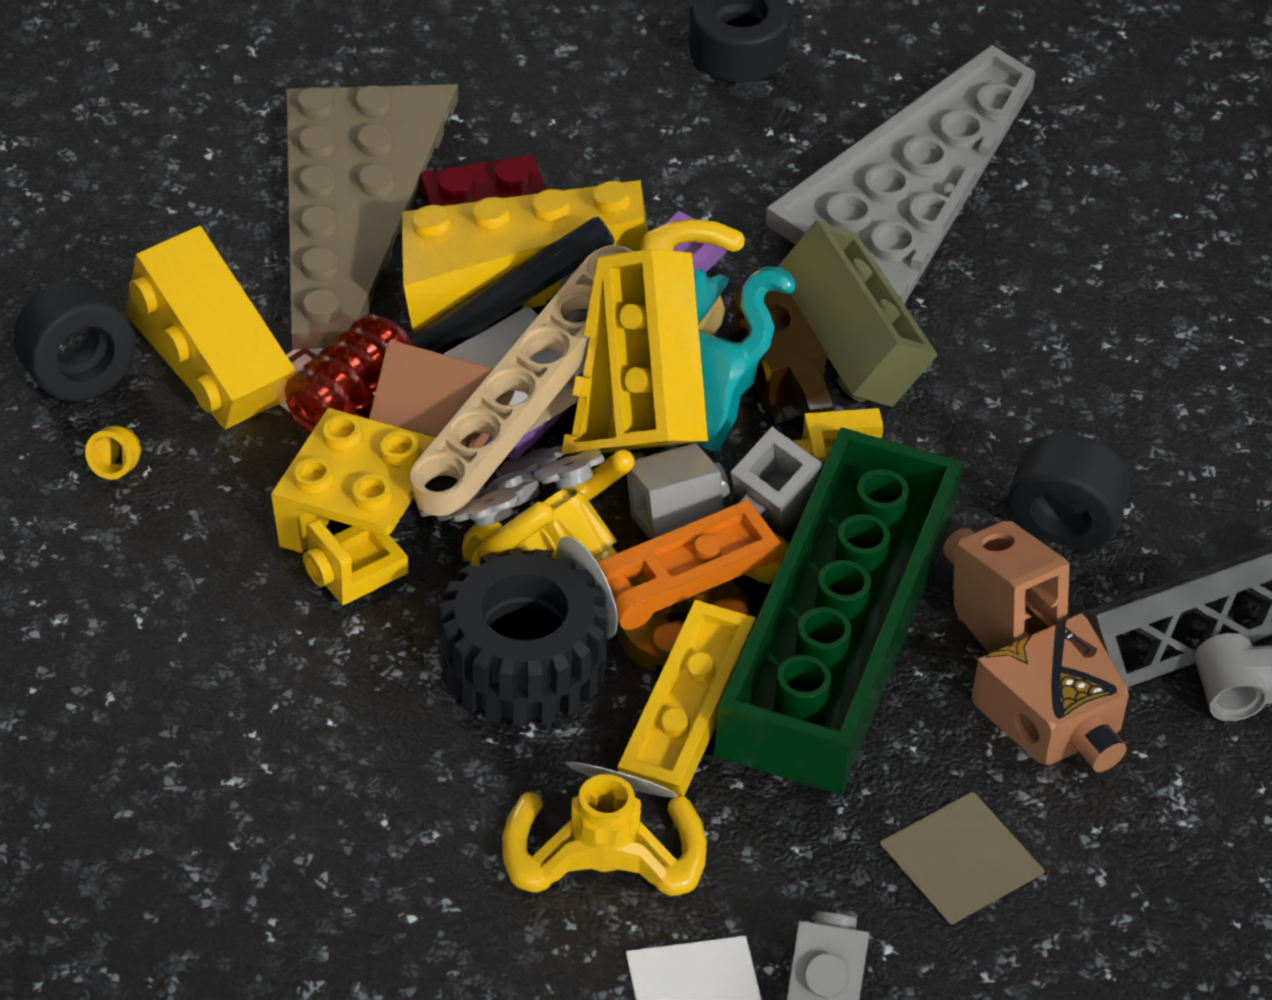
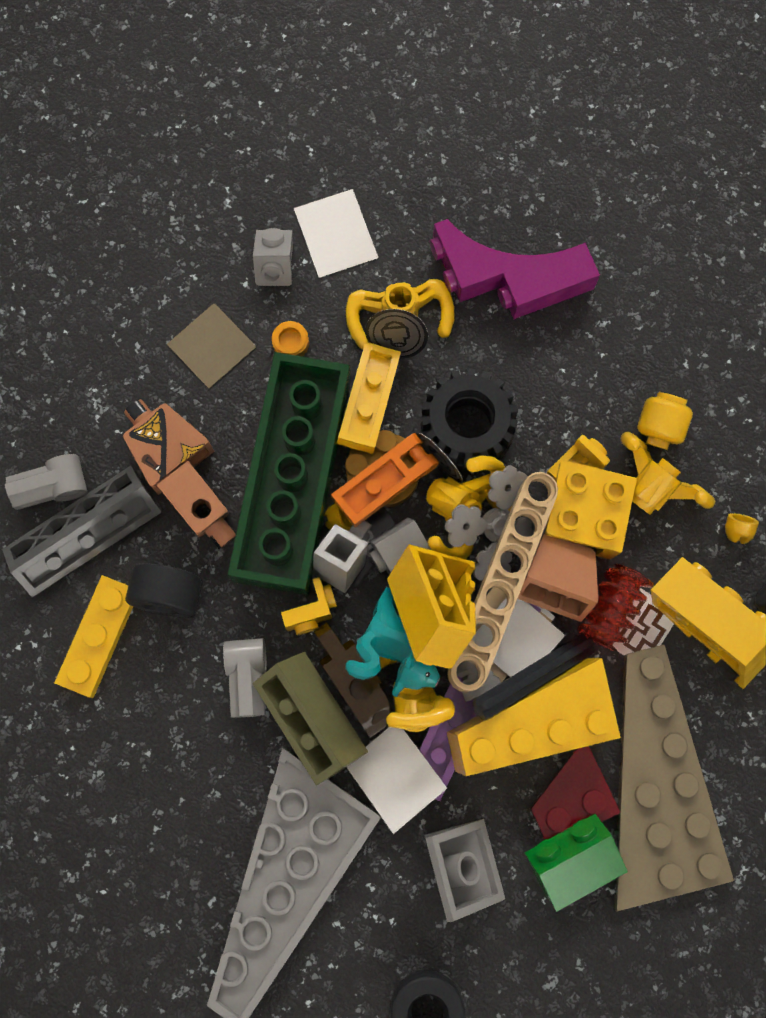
camera: 175 degrees right, 30 degrees up
(186, 596) = (665, 420): none -> yellow head
(228, 516) = (658, 480): none -> yellow piece
(369, 842) = (522, 281): none -> magenta arch
(502, 122) = (576, 862): none -> green brick
(665, 143) = (464, 869): none -> light grey slope
(744, 211) = (396, 777): none -> white sticker
(815, 833) = (290, 339): none -> light orange tile
(946, 392) = (245, 664): none -> light grey piece
(1180, 479) = (95, 638): none -> yellow plate

